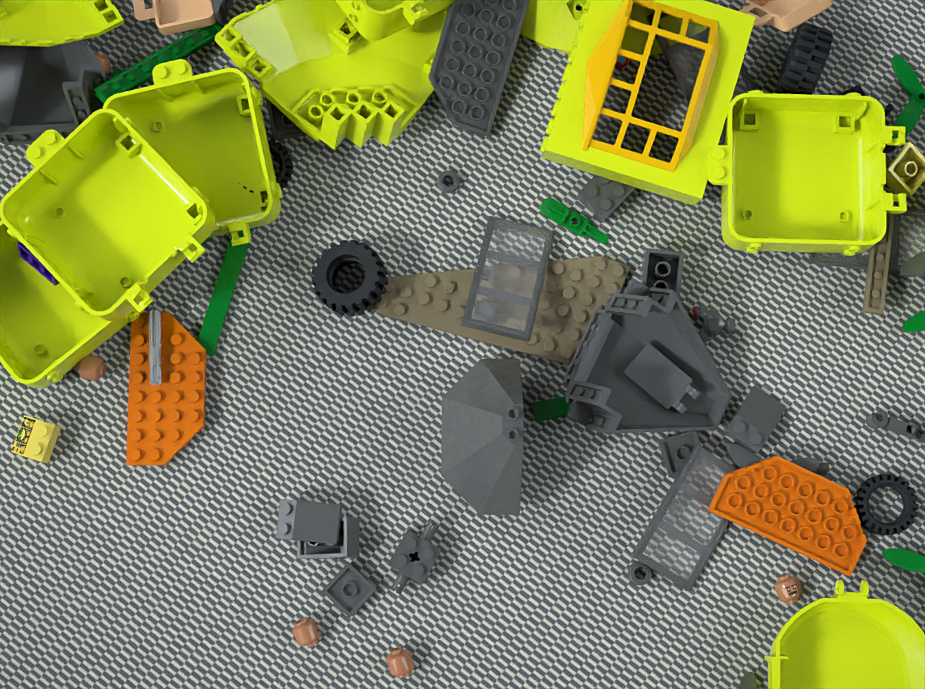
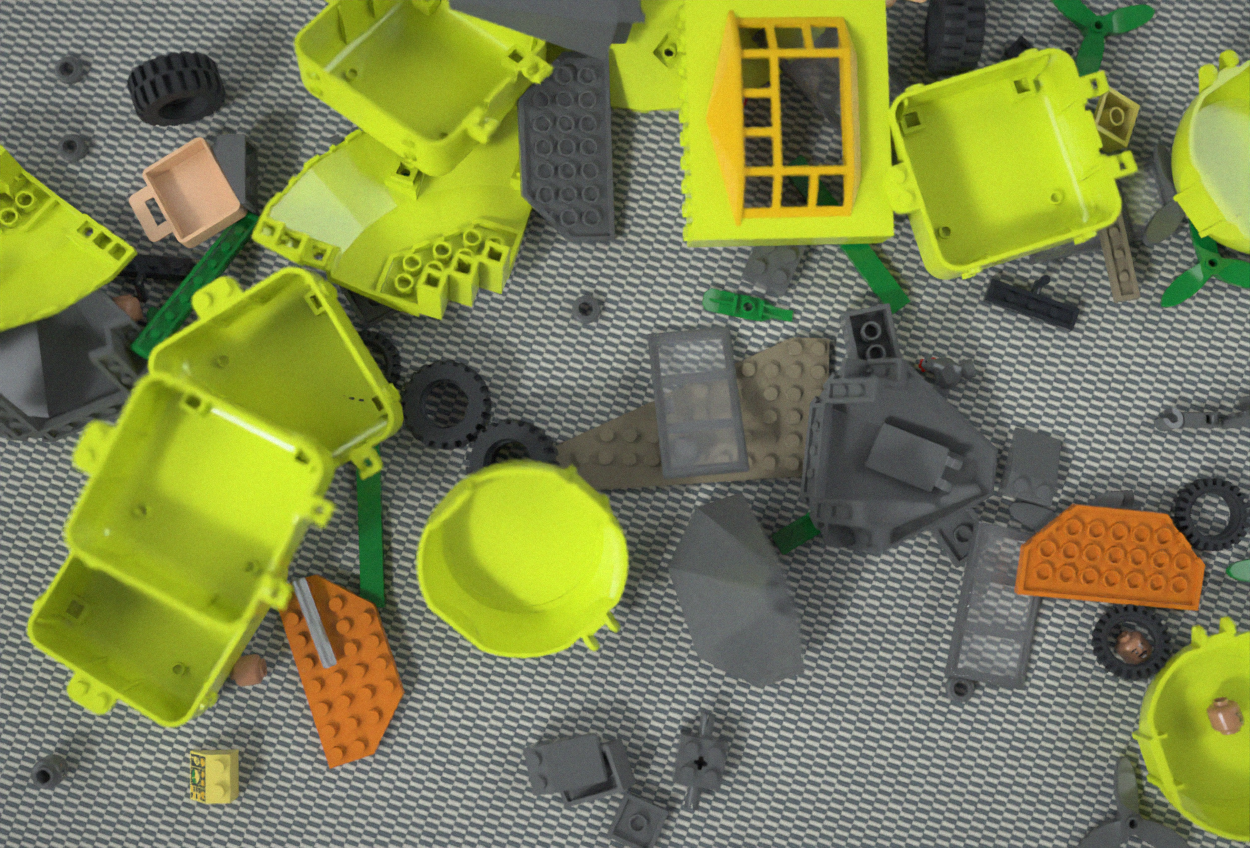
camera: 20 degrees left, 5 degrees up
(130, 40) = (156, 268): none -> black plate
(306, 194) = (415, 400): none -> black tyre
(332, 348) = (523, 559): none -> neon yellow container
(675, 209) = (860, 255): none -> green tile
(788, 559) = (1144, 618): none -> black tyre
(798, 292) = (1032, 303): none -> black plate
(843, 665) = (1225, 716): none -> nougat head

